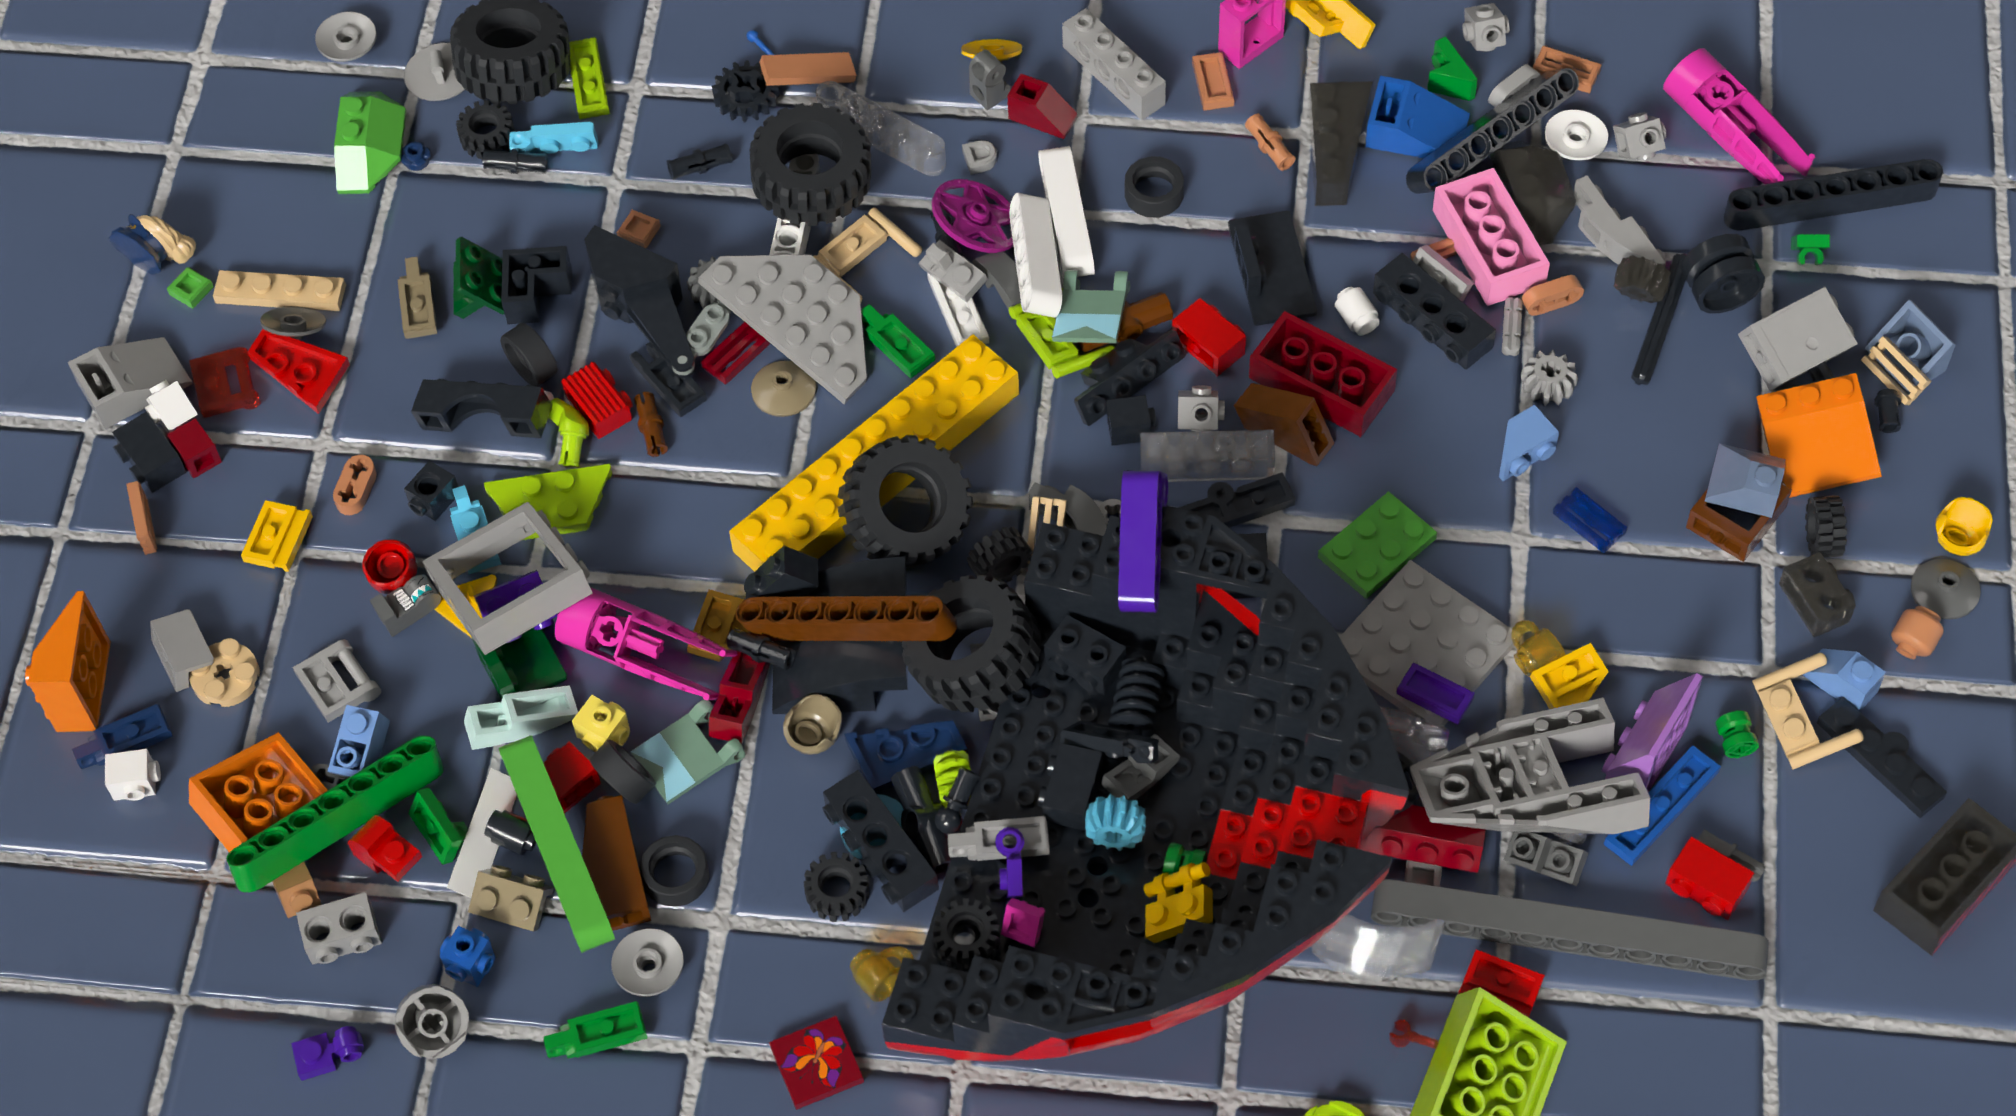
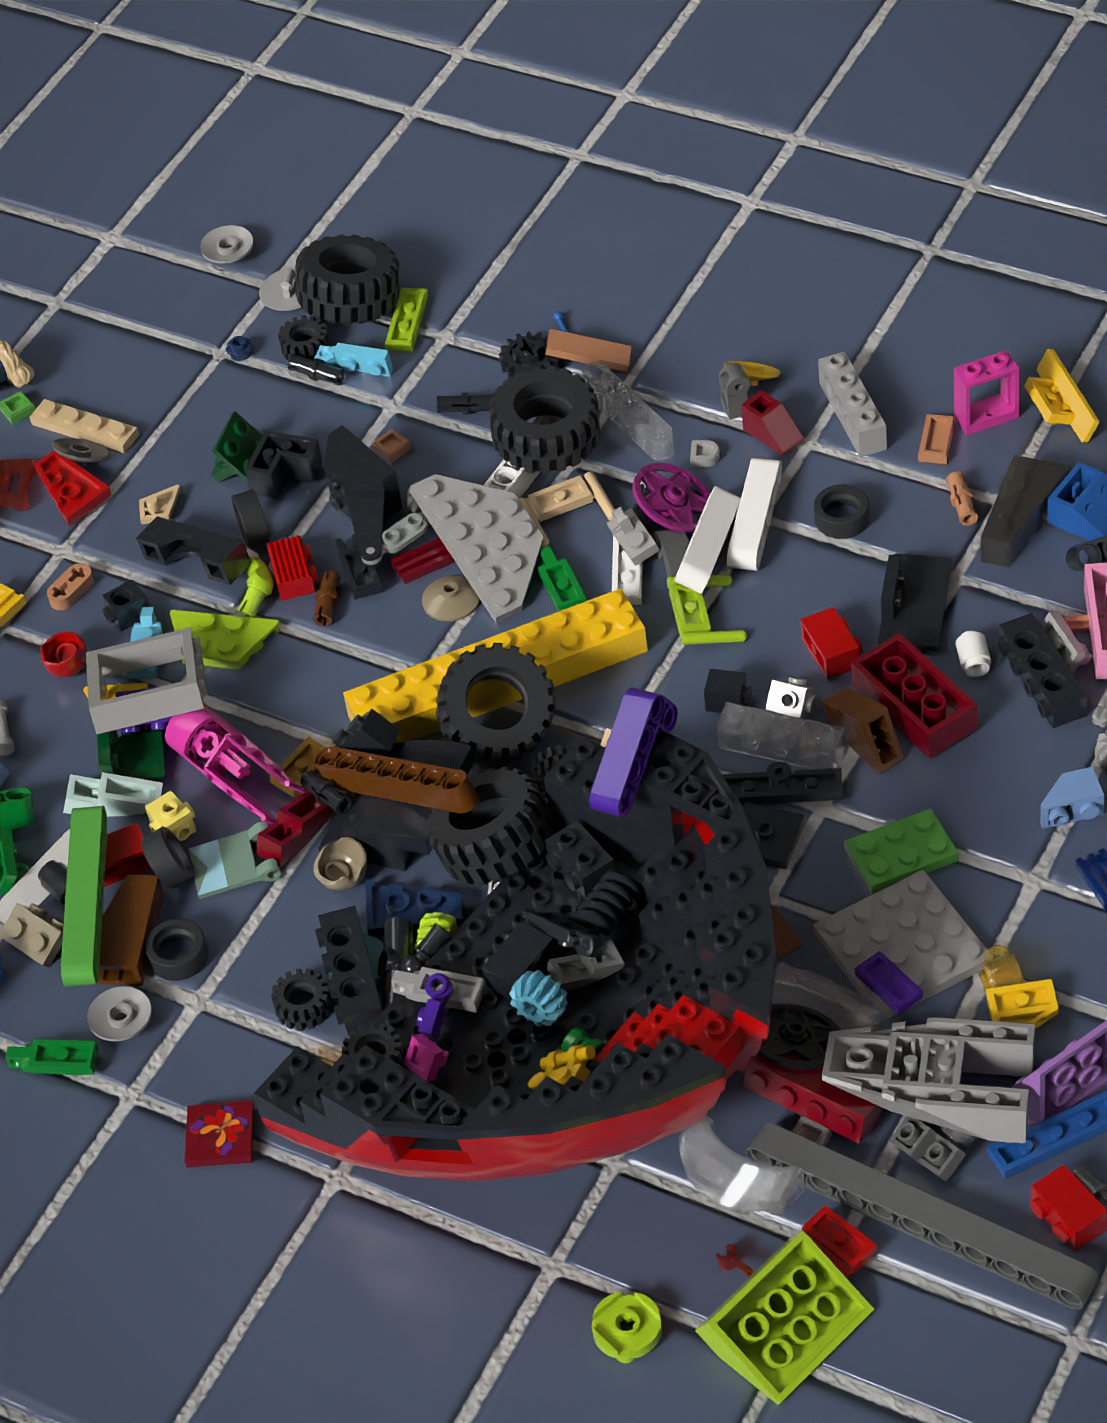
camera: 25 degrees right, 10 degrees down
(367, 140) = (204, 326): bright green wedge -> none
(406, 604) = (61, 687): dark grey leg -> none
(410, 364) = (158, 504): none -> tan piece
(416, 301) = (185, 458): dark tan hinge -> none
(1090, 314) = (732, 597): sand green flag -> none
(1125, 372) = (746, 653): black bracket -> none
(1139, 317) = (761, 613): reddish brown piece -> none

